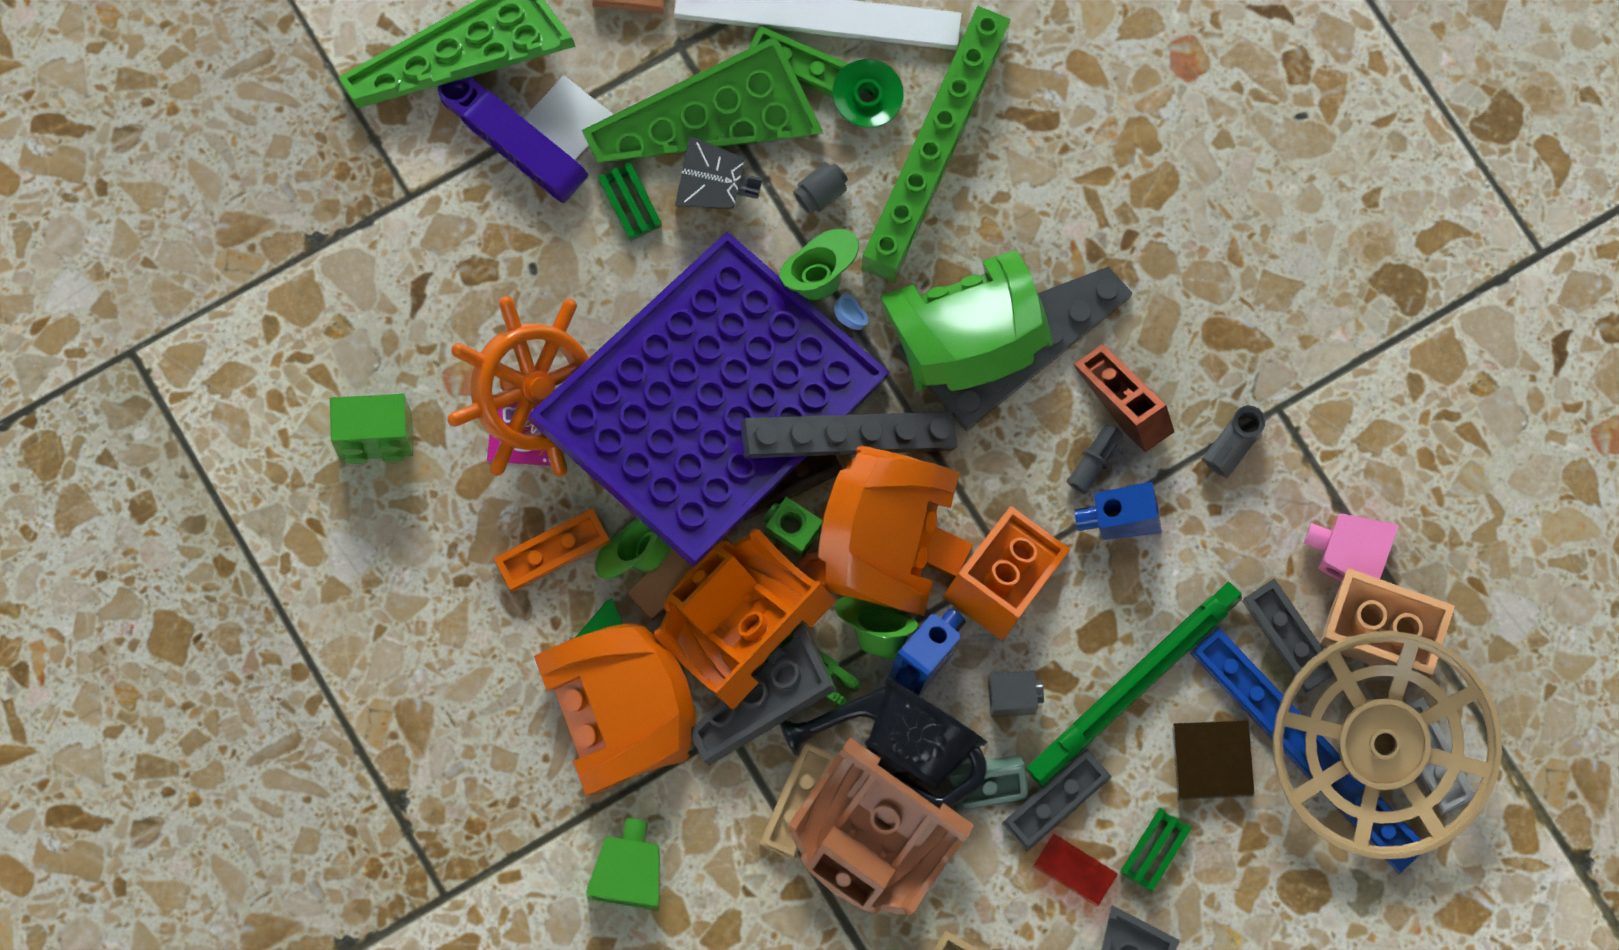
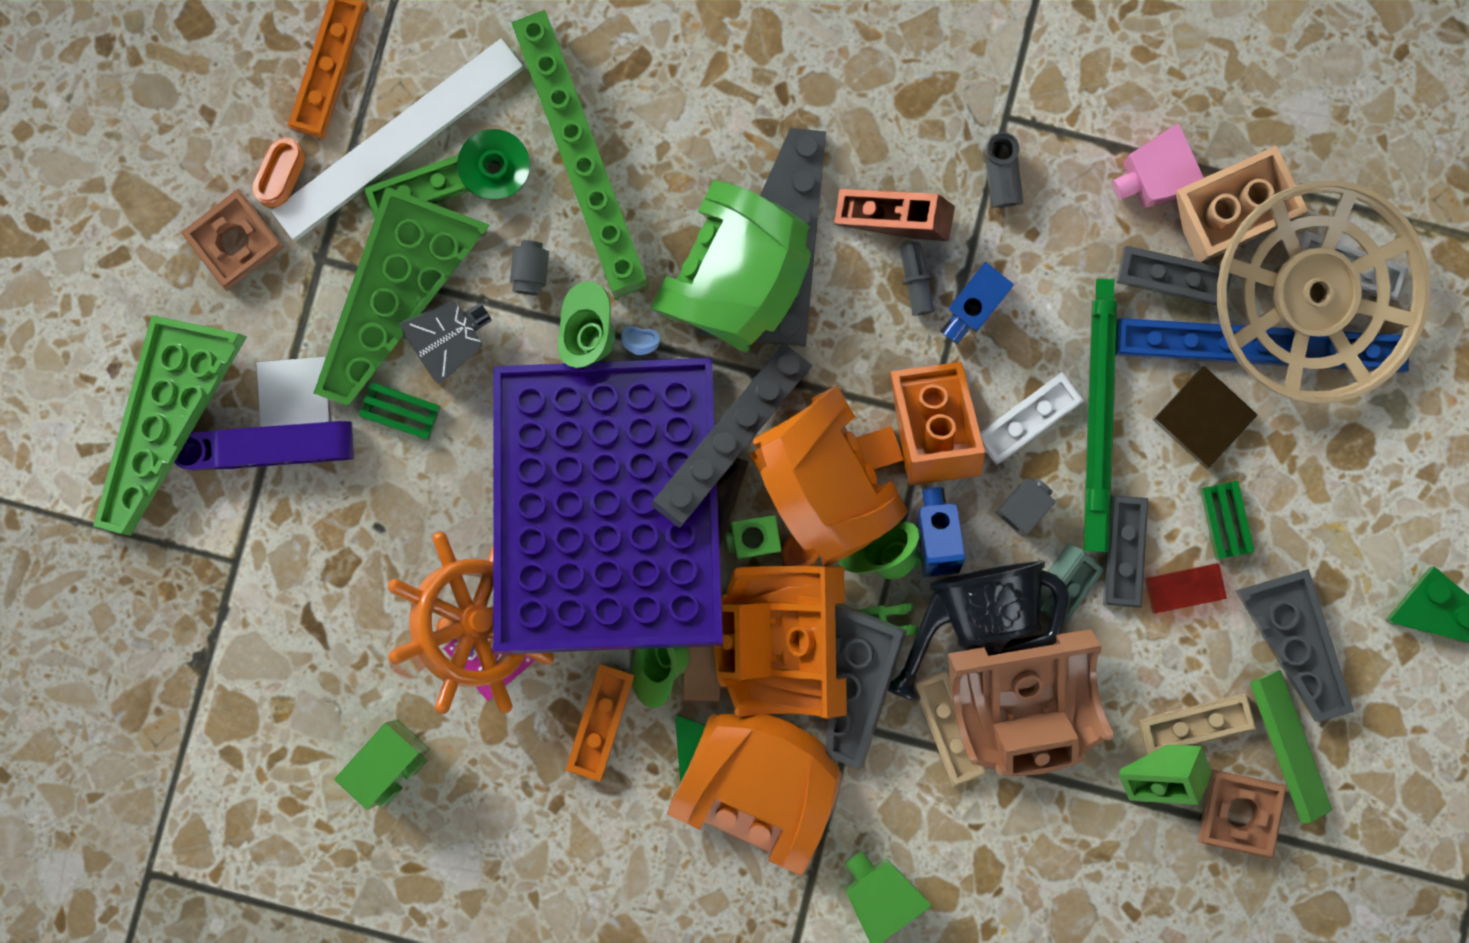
camera: 40 degrees left, 10 degrees up
(1079, 636) = (1029, 418): none -> white tile

